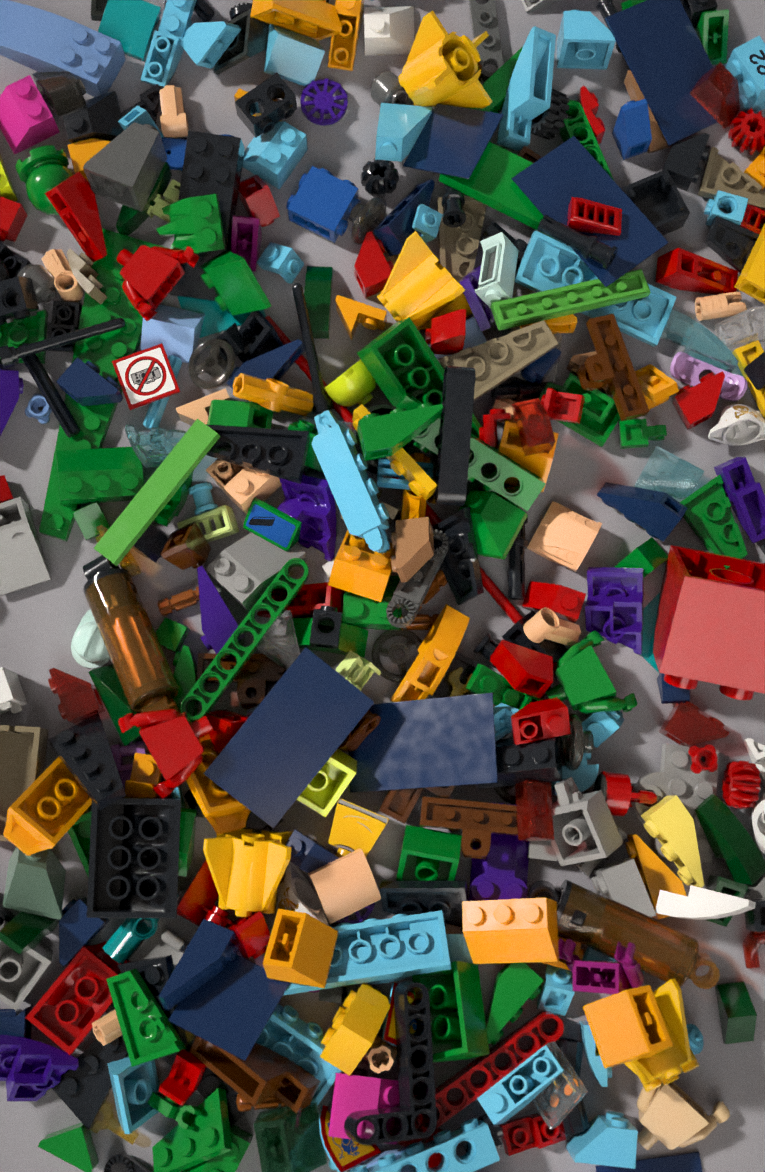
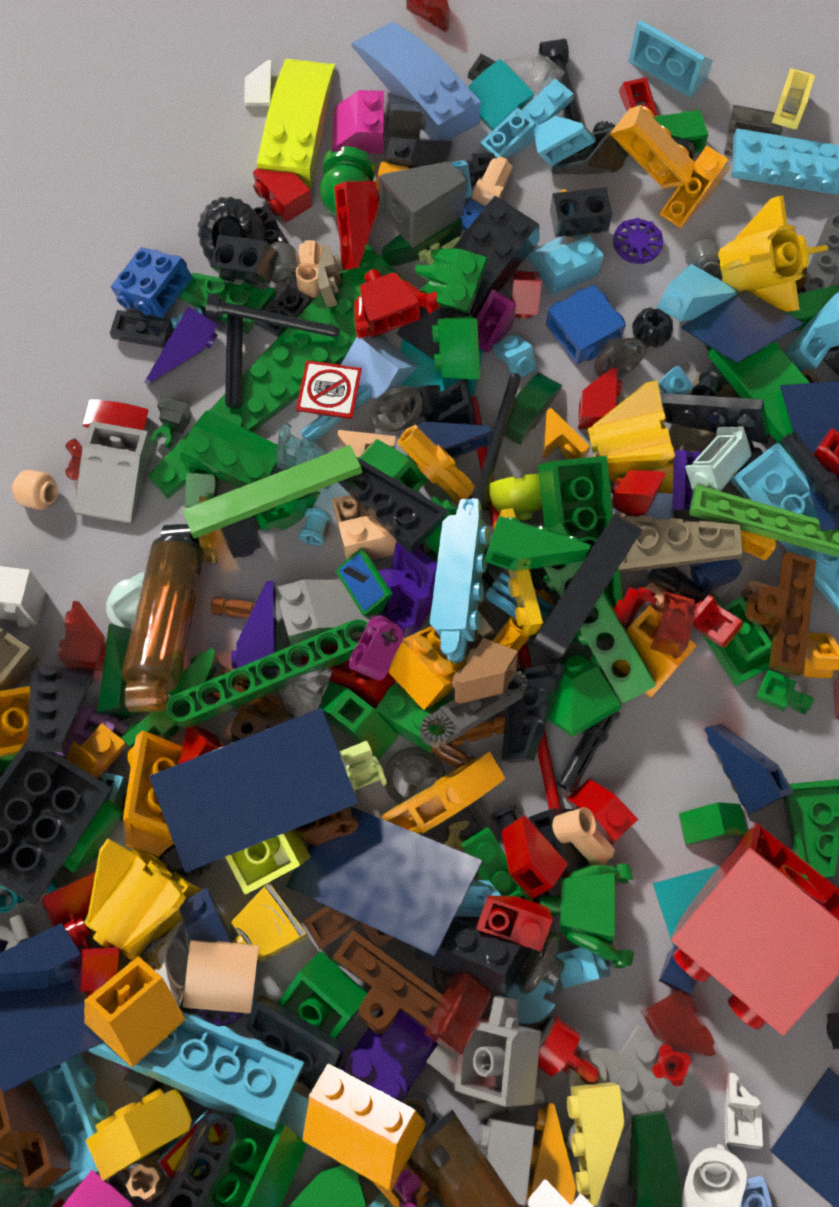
camera: 30 degrees right, 10 degrees down
(30, 470) = (173, 417): none -> pearl dark grey piece
(32, 410) = (210, 367): medium blue plate -> none
(87, 387) = (270, 369): dark blue slope -> none
(171, 634) = (207, 634): green slope -> none
(172, 743) = (135, 727): red torso -> none
(186, 547) = (270, 559): reddish brown slope -> none
(227, 512) = (322, 559): yellowish green slope -> none
(292, 55) = (630, 187): medium azure slope -> none
(319, 577) = (374, 650): none -> magenta piece
(329, 640) = (350, 717): black brick -> none
(388, 30) = (731, 208): white slope -> none
(398, 224) = (637, 375): dark blue slope -> none
(474, 229) = (712, 412): none -> black wing
(564, 536) = (647, 752): light nougat slope -> none
(616, 605) = (665, 852): dark purple slope -> none
(669, 474) = (792, 750): clear light blue slope -> none
(741, 784) = (699, 1119): red gear -> none

